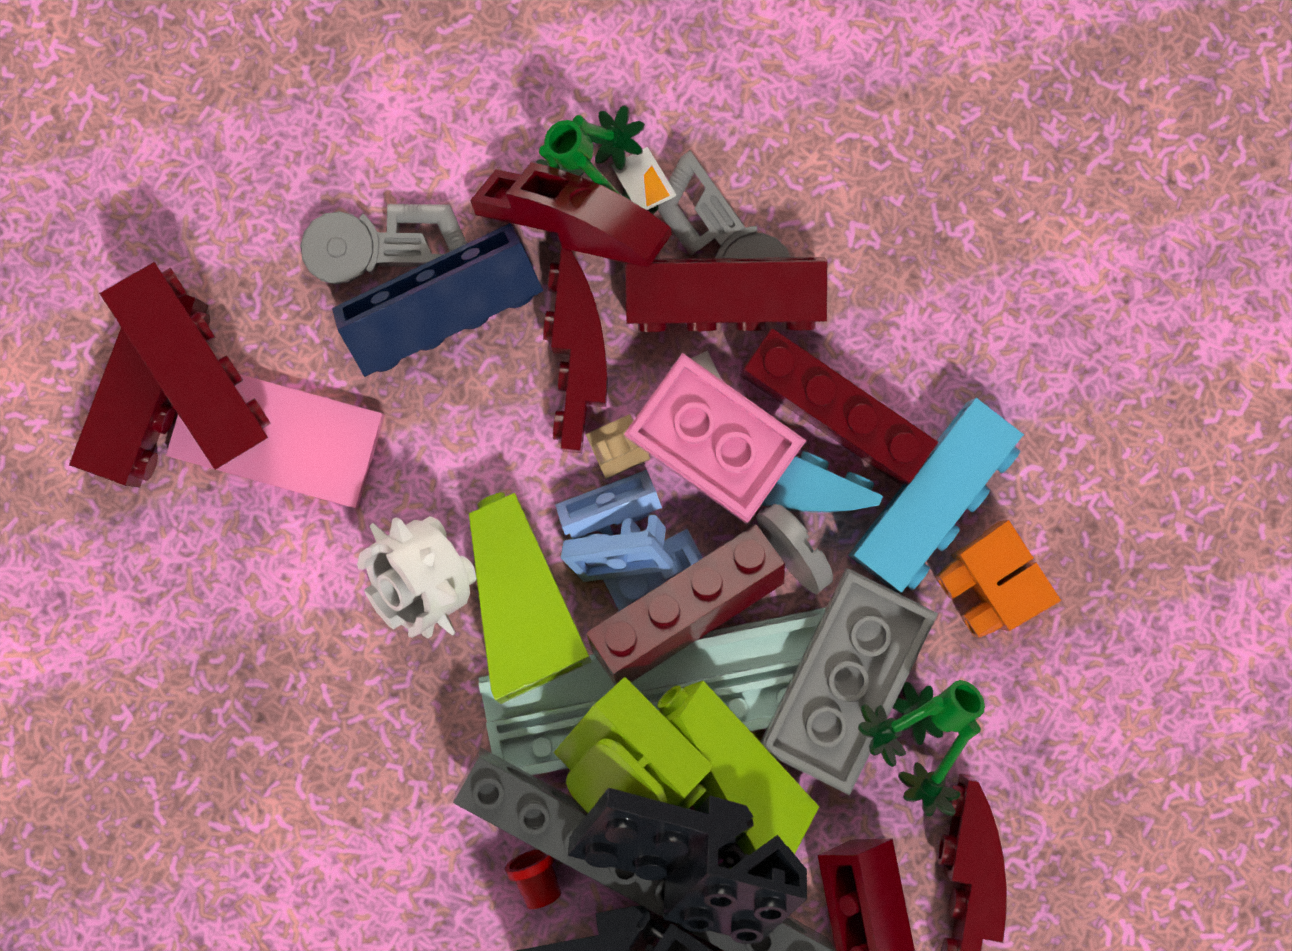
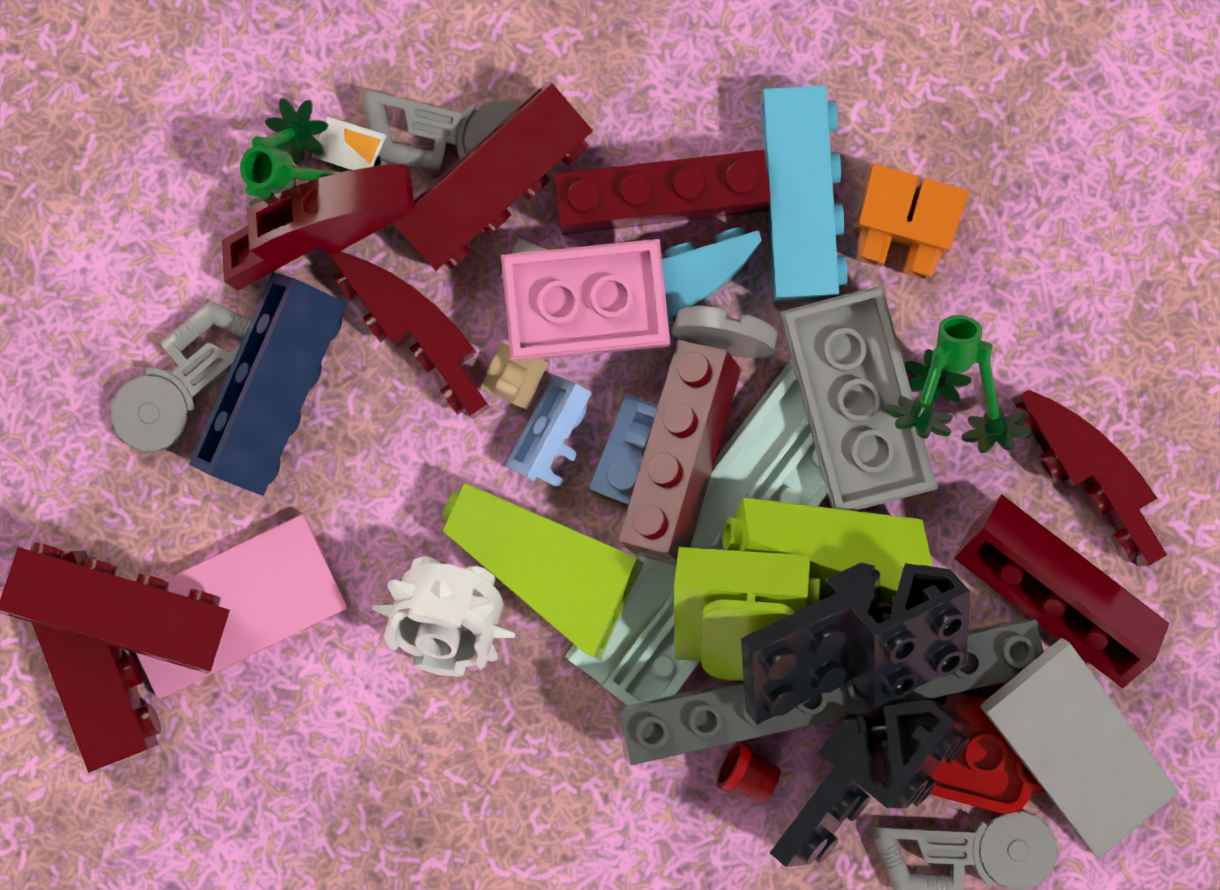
camera: 35 degrees left, 0 degrees up
(619, 555) = (591, 458): light blue plate -> none

